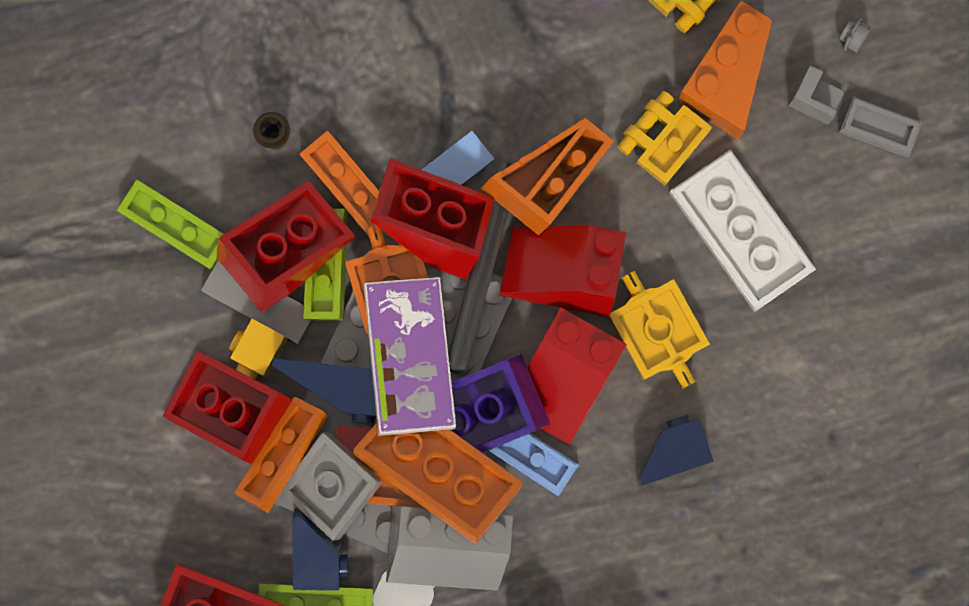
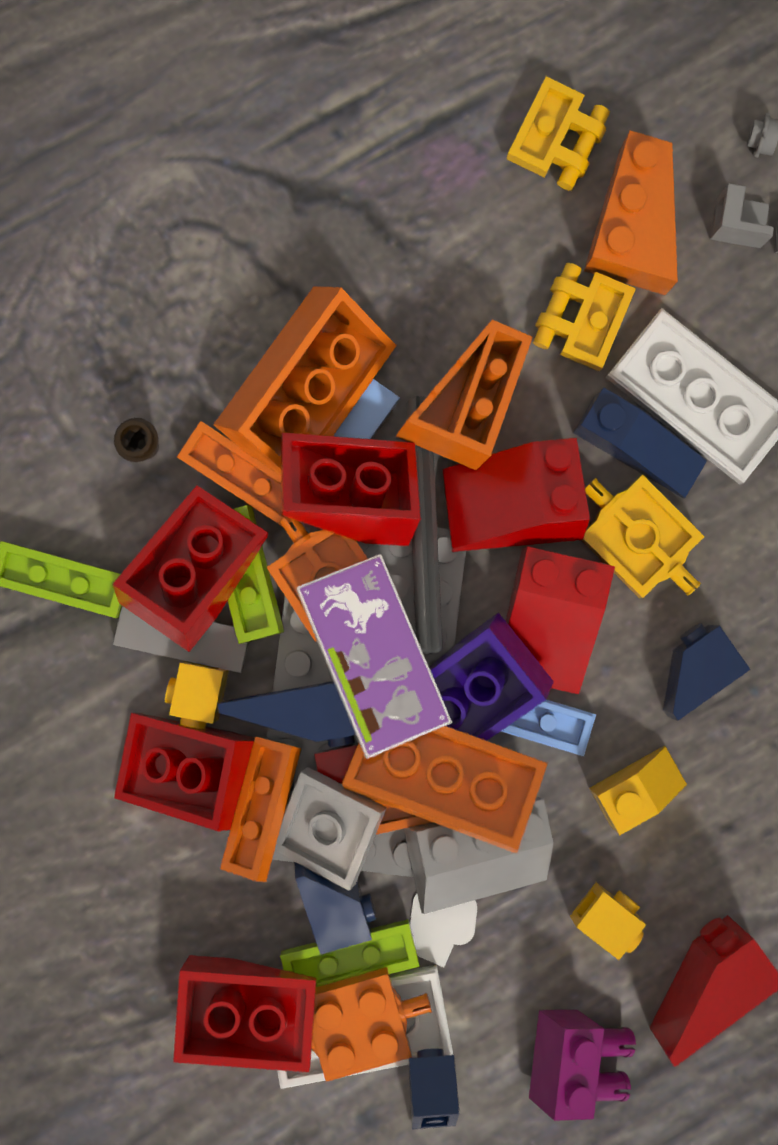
camera: 20 degrees left, 5 degrees up
(424, 119) = (307, 376): none -> orange slope
(596, 536) = (639, 790): none -> yellow slope
(680, 253) = (639, 442): none -> dark blue slope

